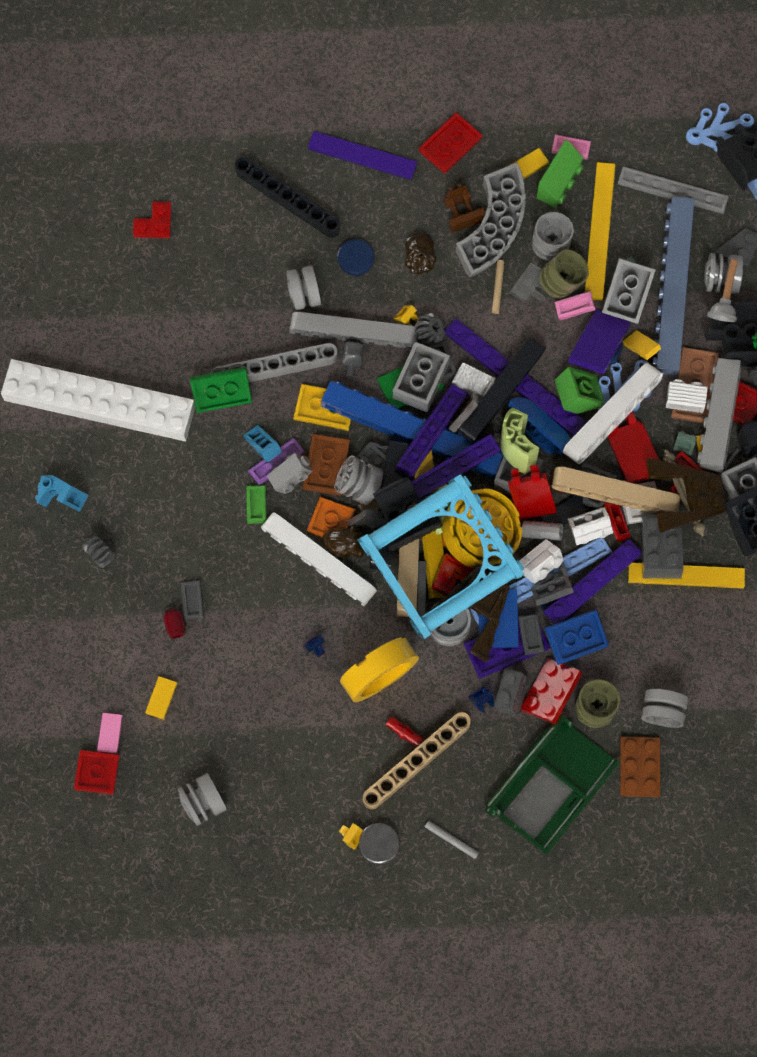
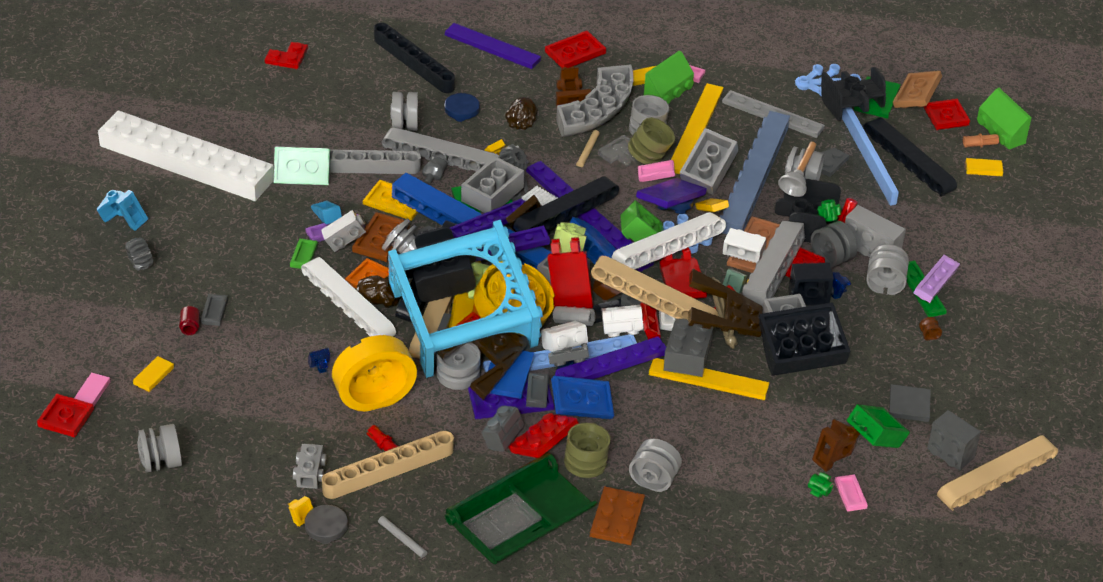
camera: 10 degrees right, 30 degrees down
(343, 773) = (309, 462): none -> light grey brick
(480, 697) = (474, 428): clear blue tile -> none

